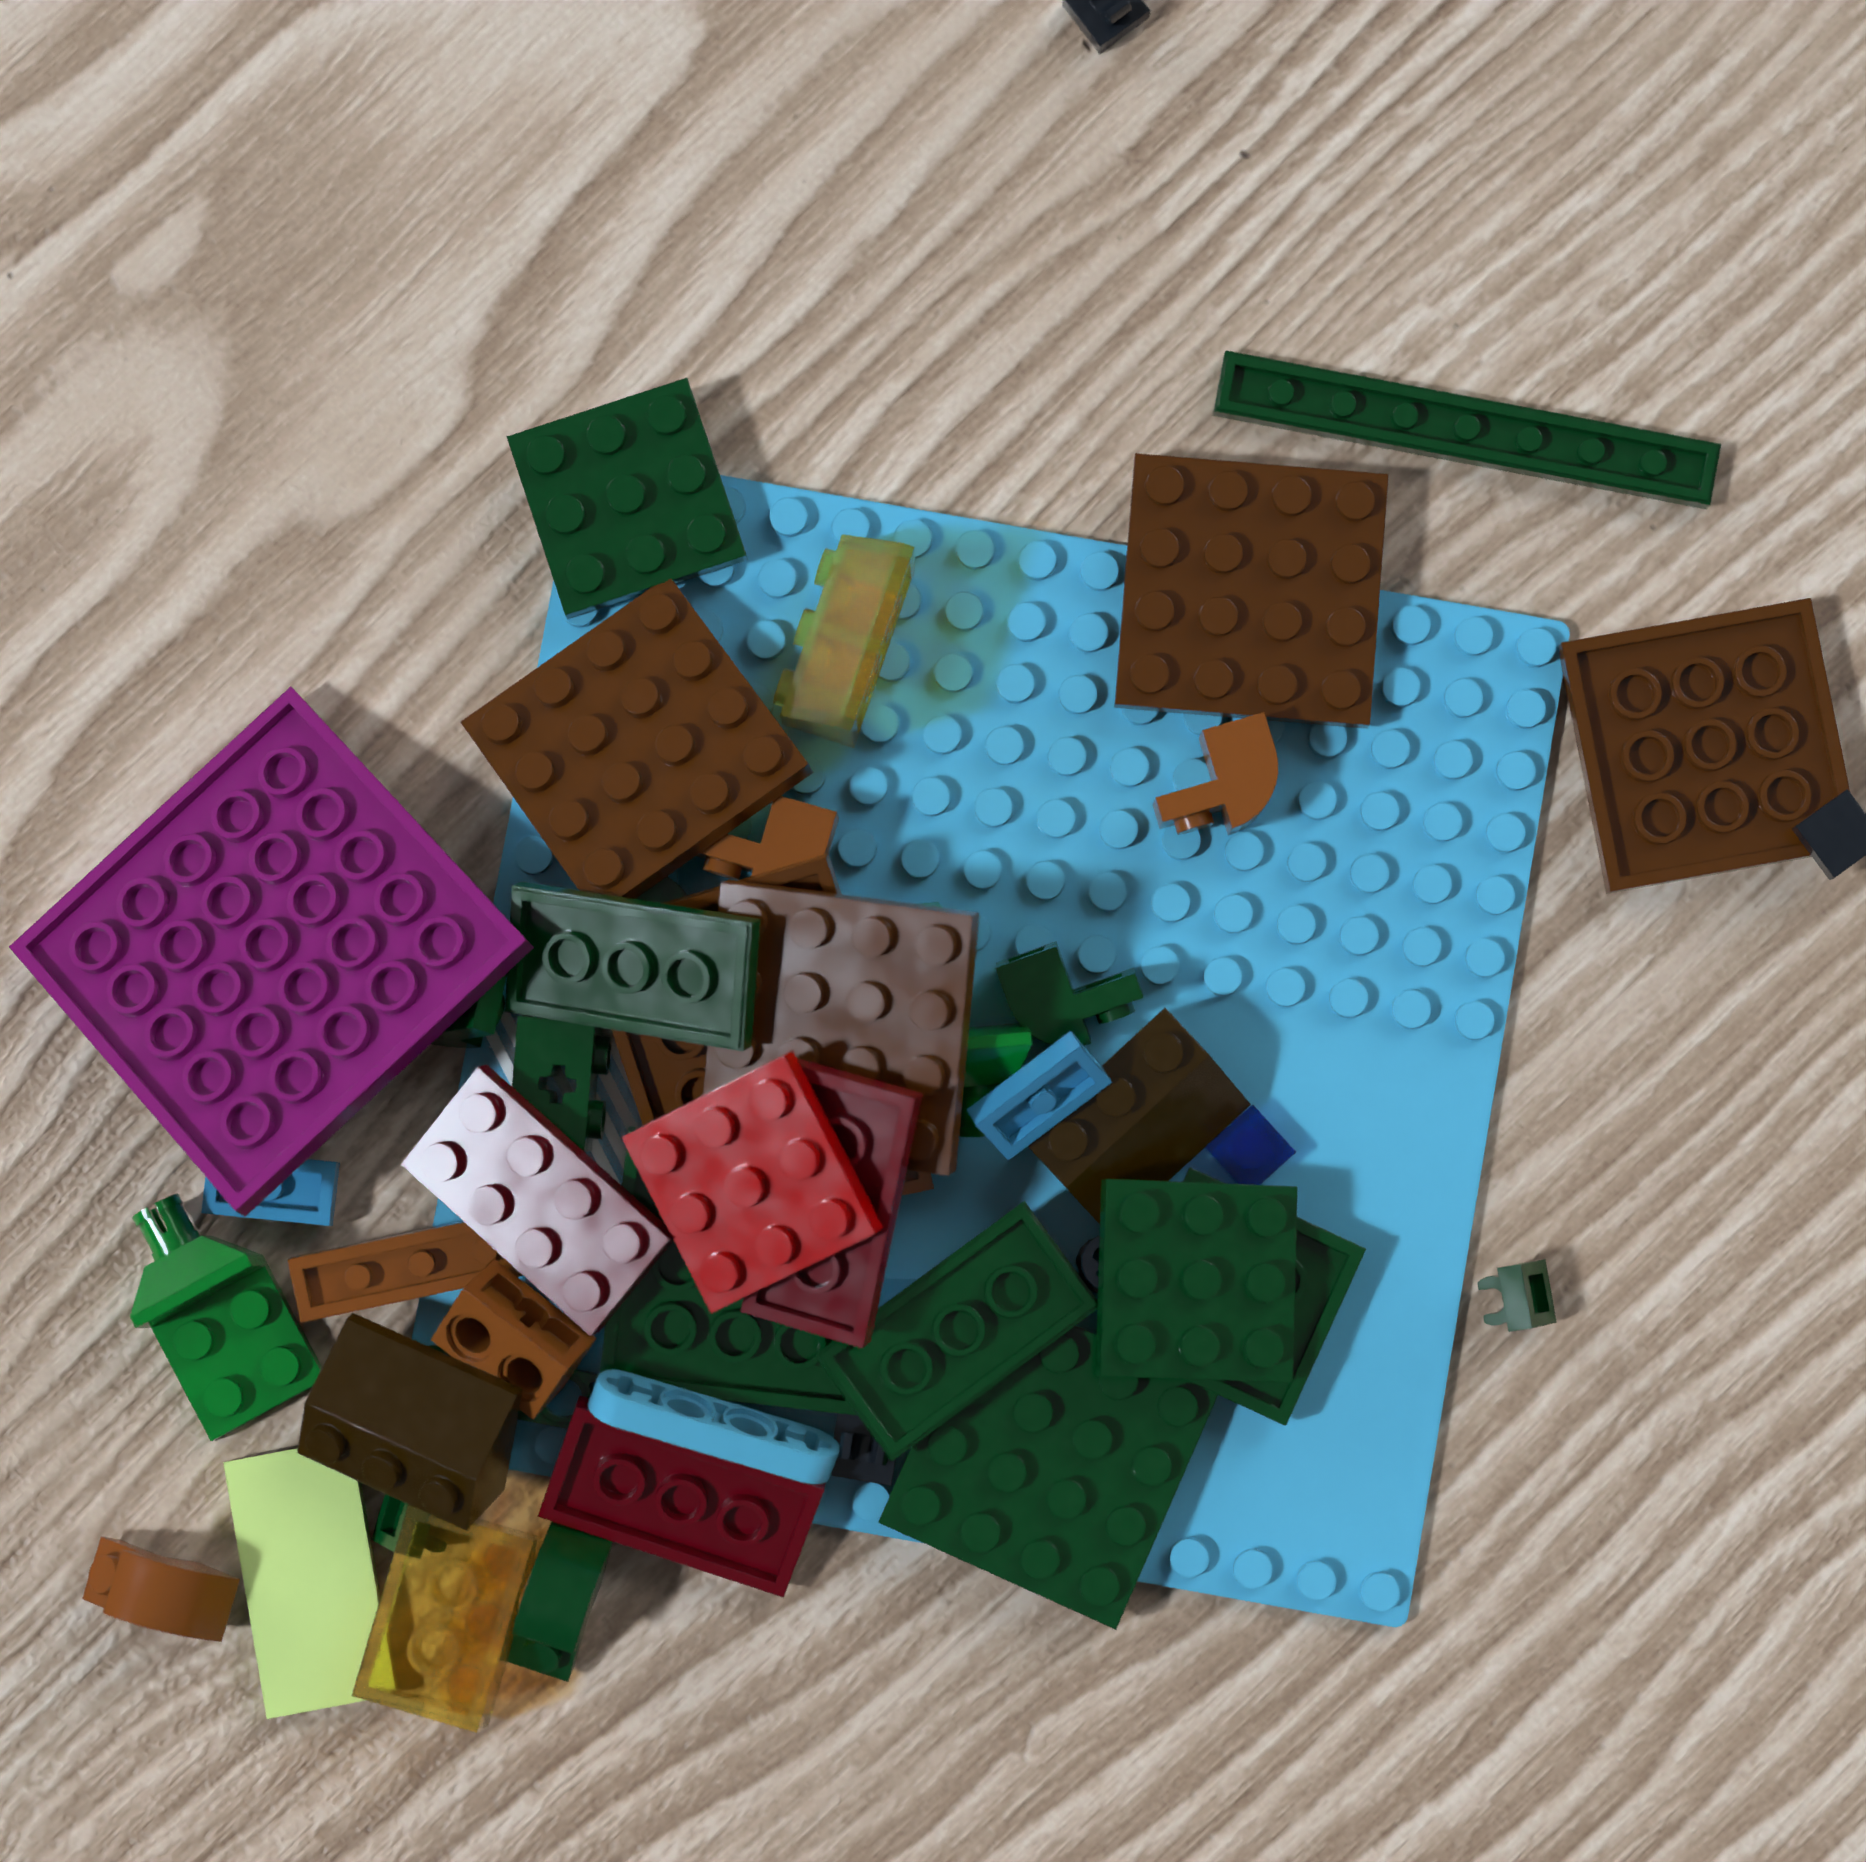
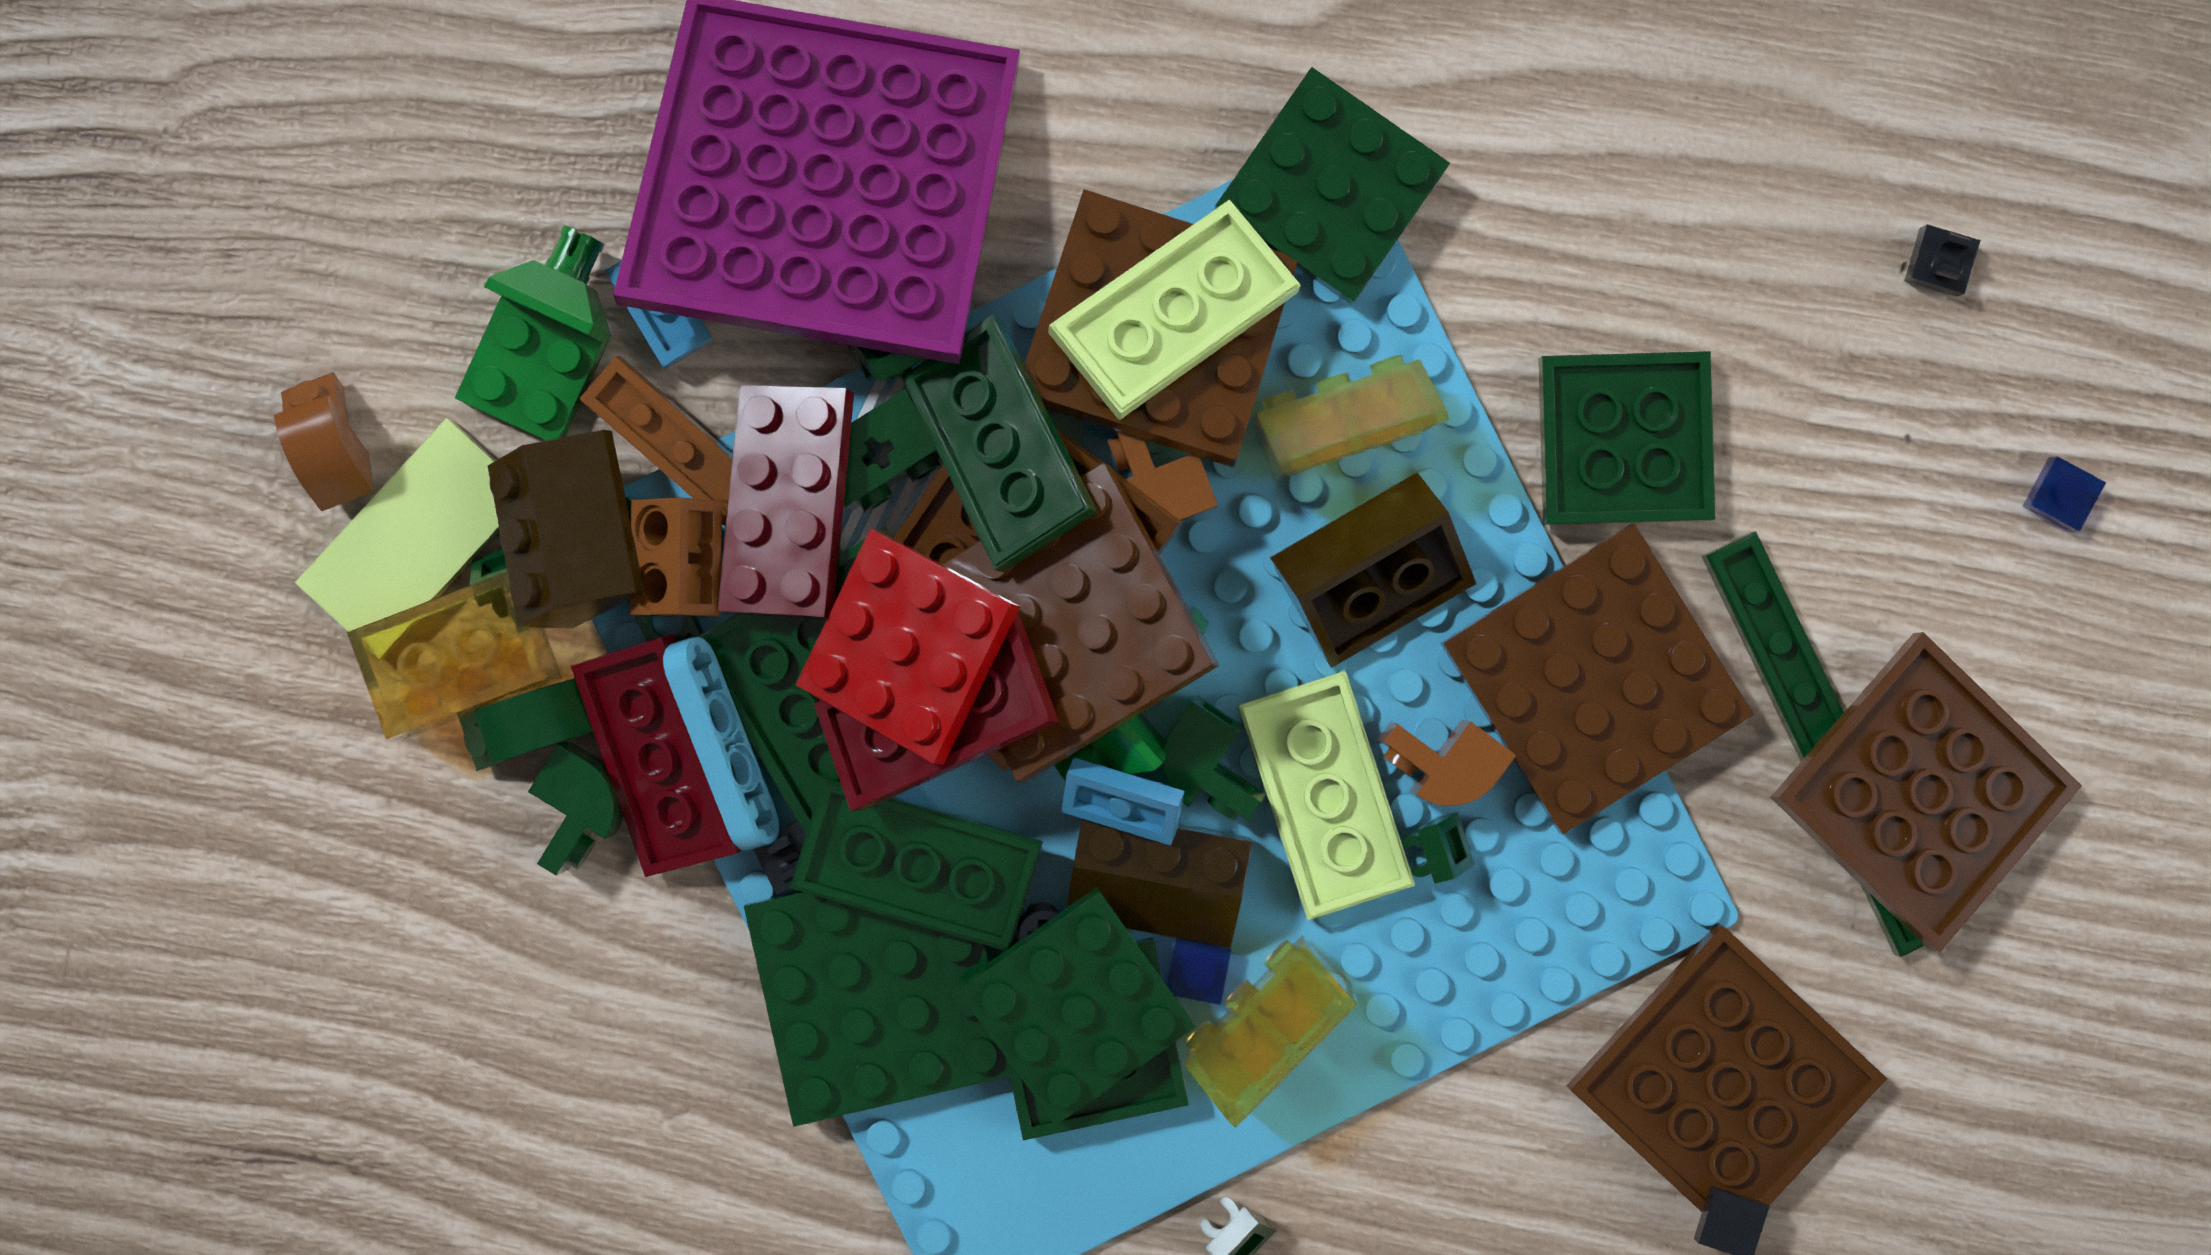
camera: 50 degrees right, 5 degrees up
(631, 719) = (1173, 309): none -> yellowish green tile
(668, 1593) = (583, 791): none -> dark green brick
(1002, 715) = (1375, 569): none -> dark brown slope
(1054, 403) = (1626, 438): none -> dark green plate
(1175, 913) = (1326, 795): none -> yellowish green tile
(1301, 840) = (1443, 847): none -> dark green tile
(1346, 1121) = (1268, 1028): none -> clear yellow slope
(1398, 53) = (2064, 494): none -> clear blue plate
(1573, 372) = (1926, 791): none -> reddish brown plate

